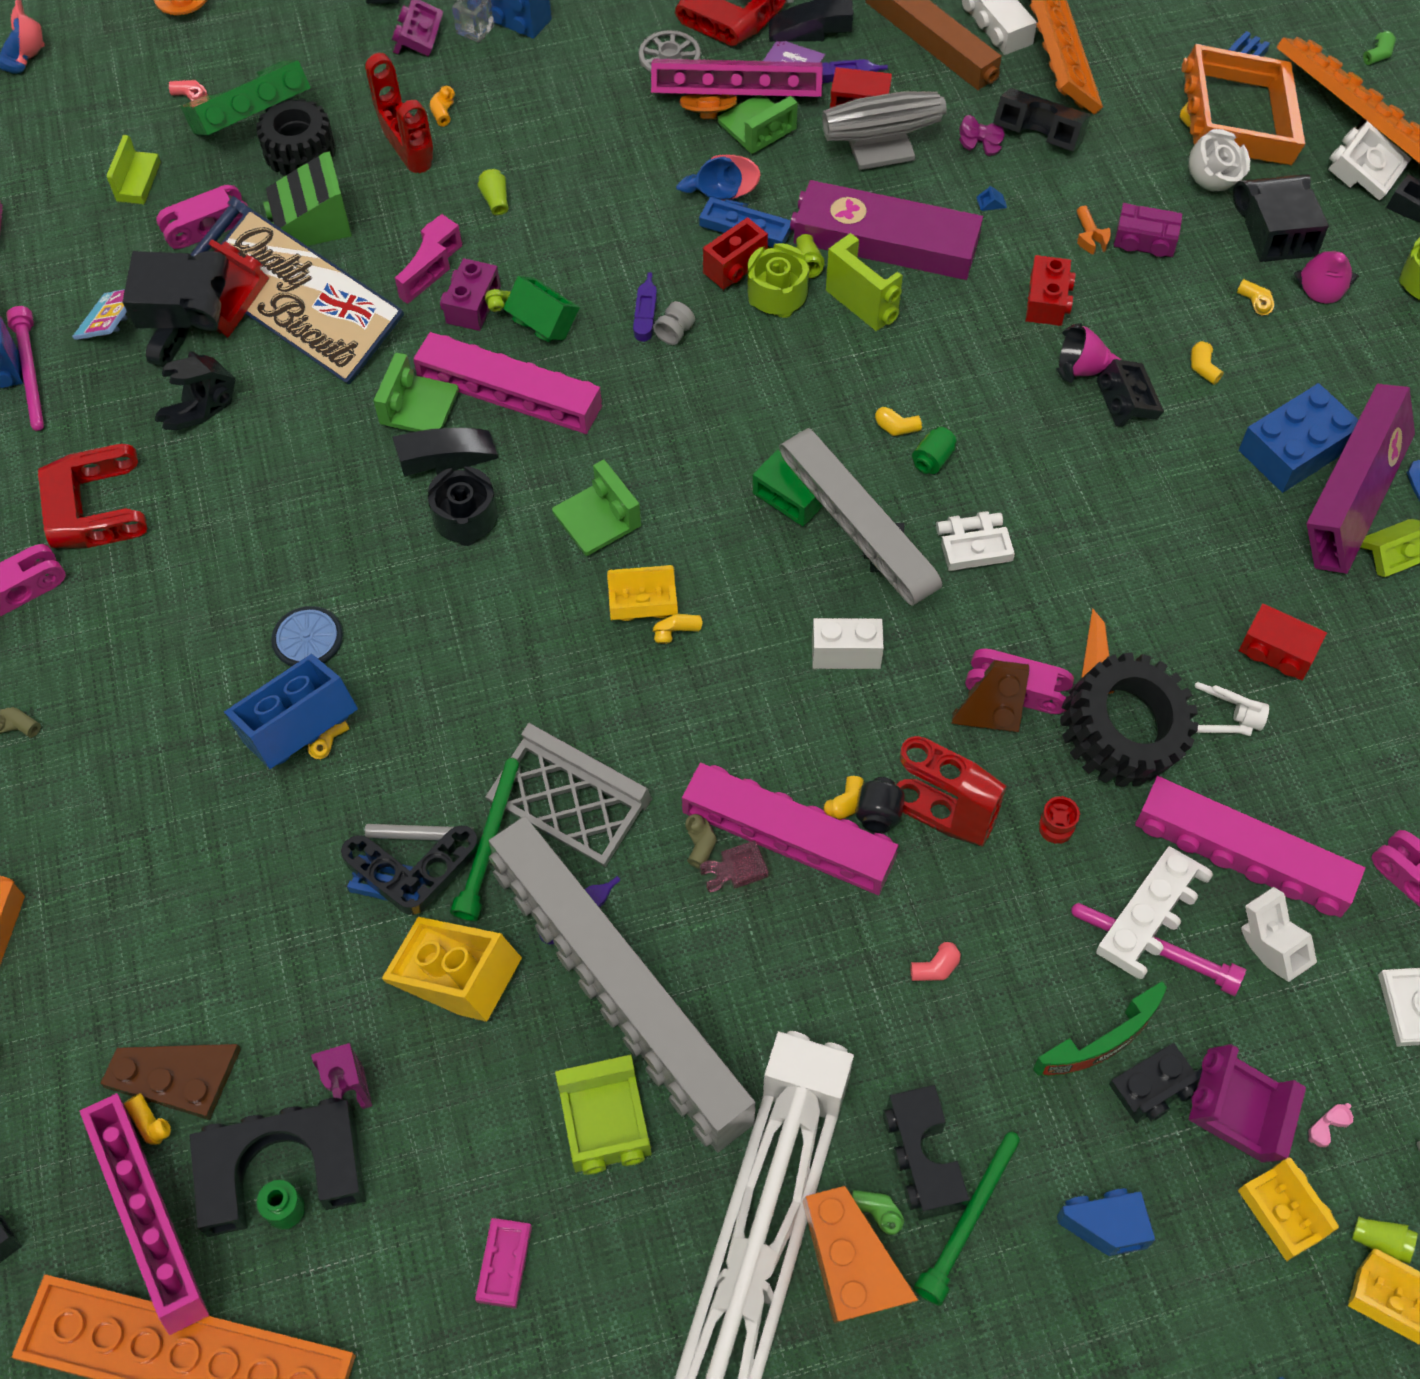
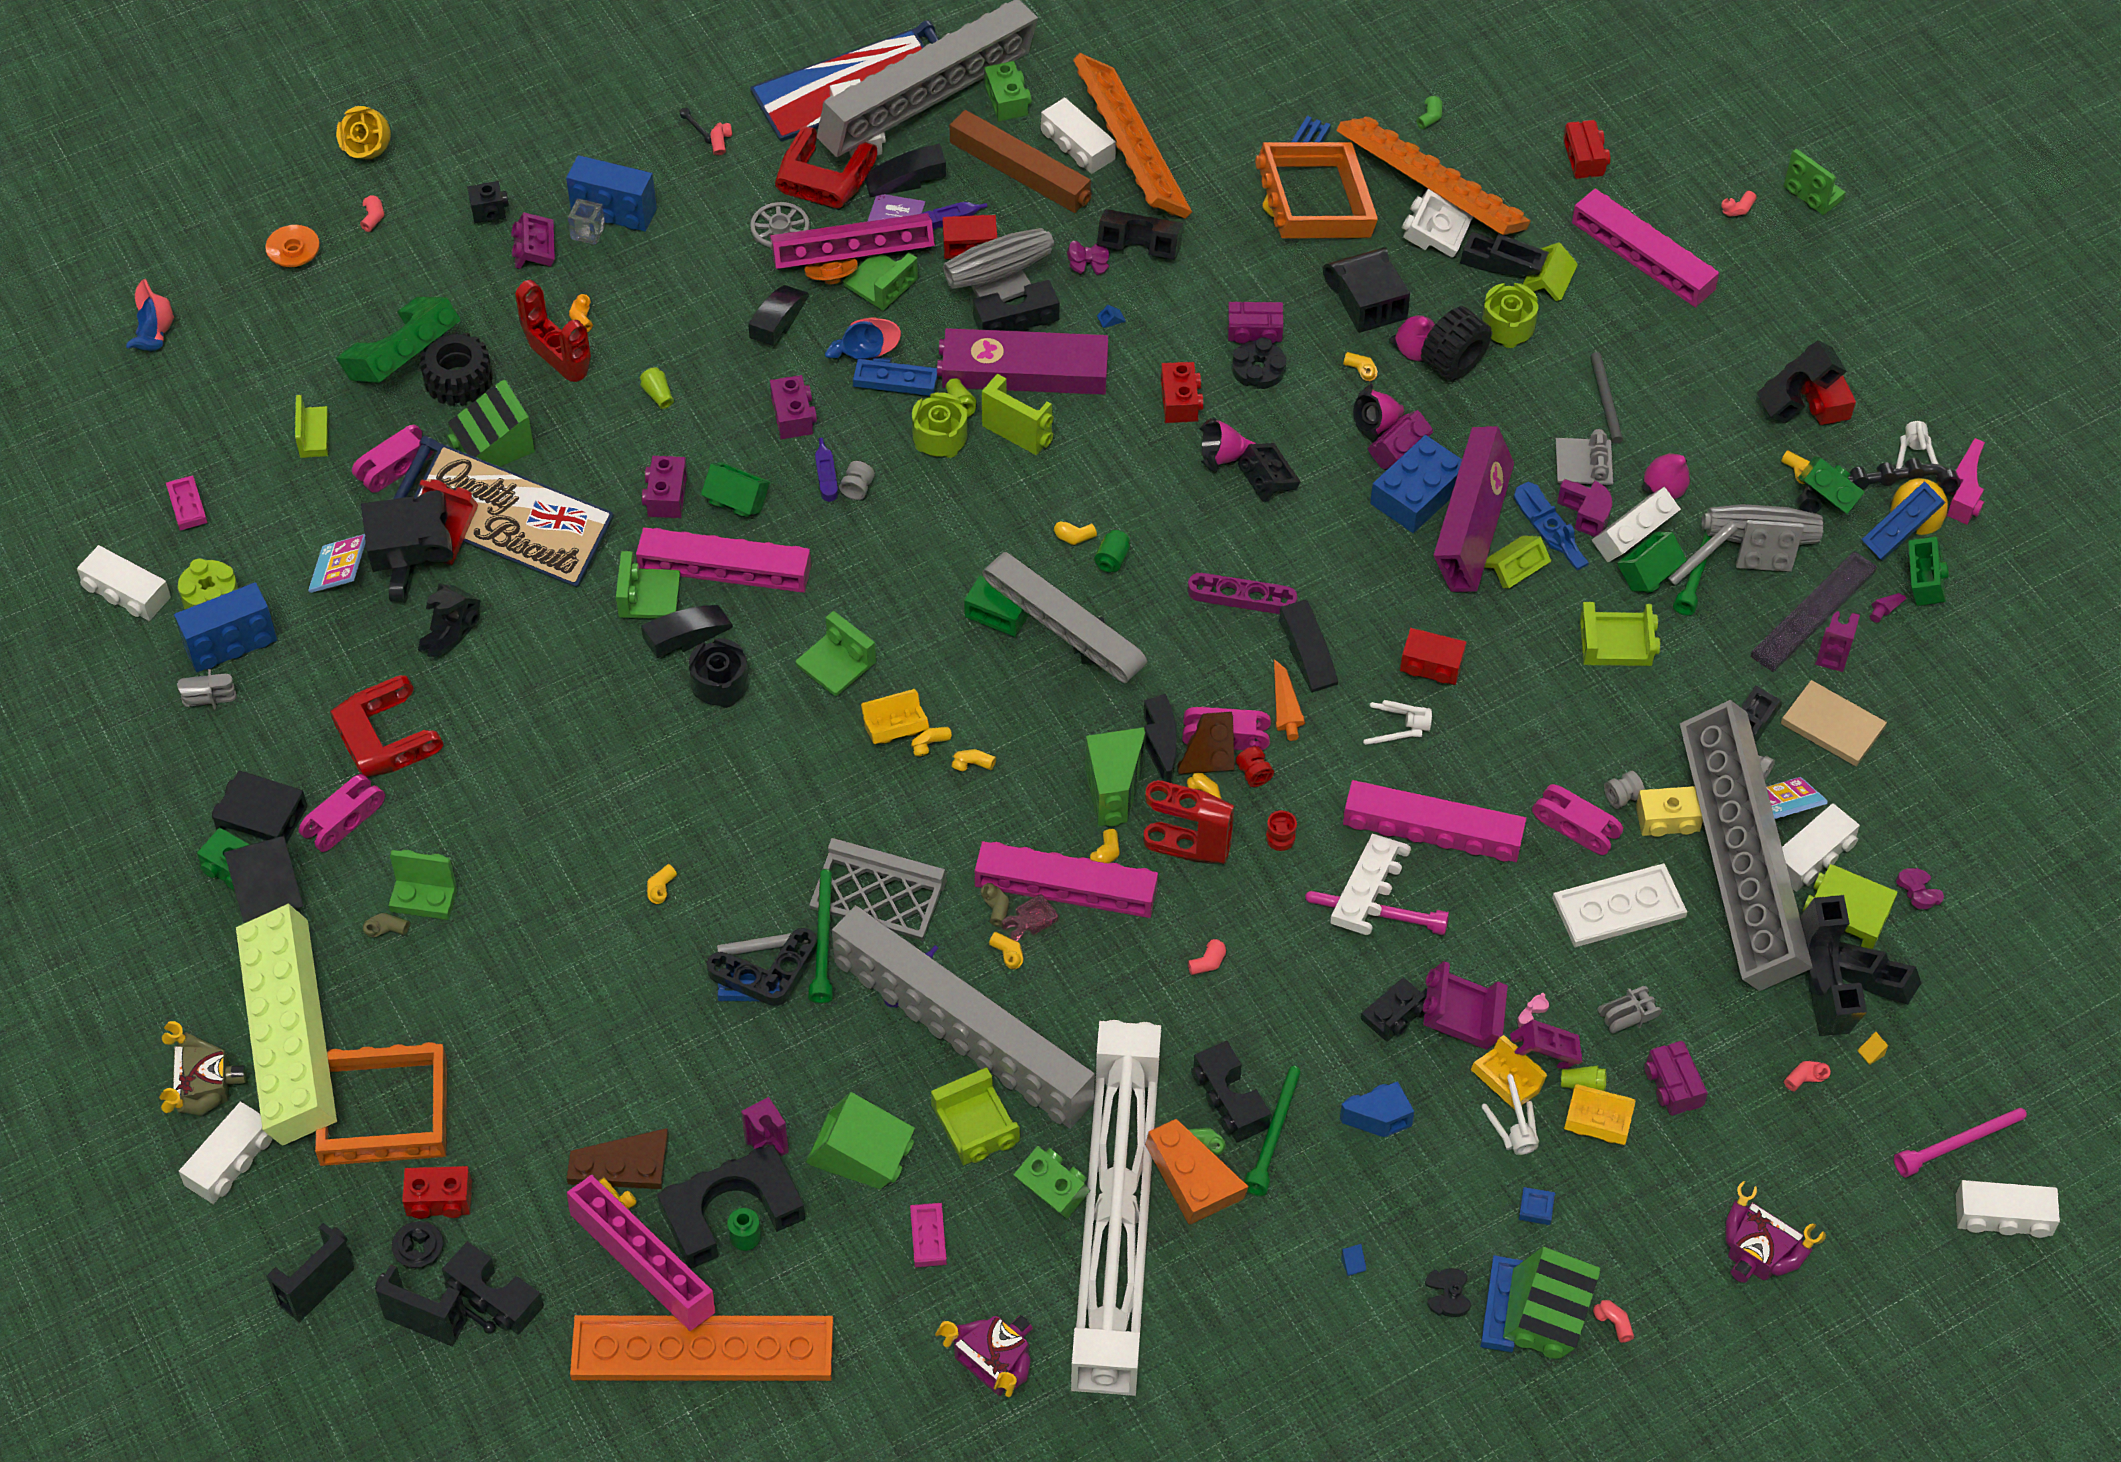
camera: 15 degrees left, 5 degrees down
(21, 322) = (280, 625): dark pink piece -> none
(65, 686) = (422, 884): none -> bright green bracket
(189, 88) = (334, 337): coral arm -> none
(291, 710) = (629, 866): blue brick -> none
(306, 632) = (614, 808): medium blue wheel -> none
(440, 241) = (620, 444): dark pink slope -> none
(454, 967) = (824, 1036): yellow slope -> none
(457, 1120) = (861, 1143): none -> bright green slope
(496, 299) = (694, 487): lime arm -> none
(627, 234) = (791, 407): none -> magenta brick
(638, 139) = (776, 314): none -> black slope
(674, 1228) = (1052, 1181): none -> bright green brick
(703, 902) = (1011, 950): none -> yellow arm
(720, 656) = (973, 756): none -> yellow arm
(728, 255) = (894, 407): red brick -> none
(847, 643) = (1071, 724): white brick -> none
(875, 710) = (1113, 773): none -> bright green slope
(880, 805) = (1135, 846): black head -> none
(914, 178) = (1038, 308): none -> black arch
(941, 675) = (1161, 735): none -> black slope
(978, 547) = (1166, 627): white plate -> none
(982, 745) = (1202, 782): none -> yellow arm
(1043, 733) = (1254, 765): none -> red wheel
(1068, 1059) = (1325, 1004): green slope -> none
(1073, 520) = (1241, 597): none -> magenta beam
(1085, 240) = (1206, 331): orange bar -> none
(1107, 748) = (1308, 766): black tyre -> none
(1136, 600) = (1308, 645): none -> black slope
(1144, 262) = (1258, 351): none -> black plate
(1202, 363) = (1325, 434): yellow arm -> none
(1218, 161) = (1304, 248): white cylinder -> none
(1264, 349) = (1375, 412): none -> black hat
(1275, 939) = (1465, 885): white brick -> none
(1287, 383) = (1399, 439): none -> magenta brick
(1291, 1302) = (1523, 1136): none -> white plant
(1348, 1182) = (1548, 1041): none -> magenta hinge
(1372, 288) = (1456, 343): none -> black tyre

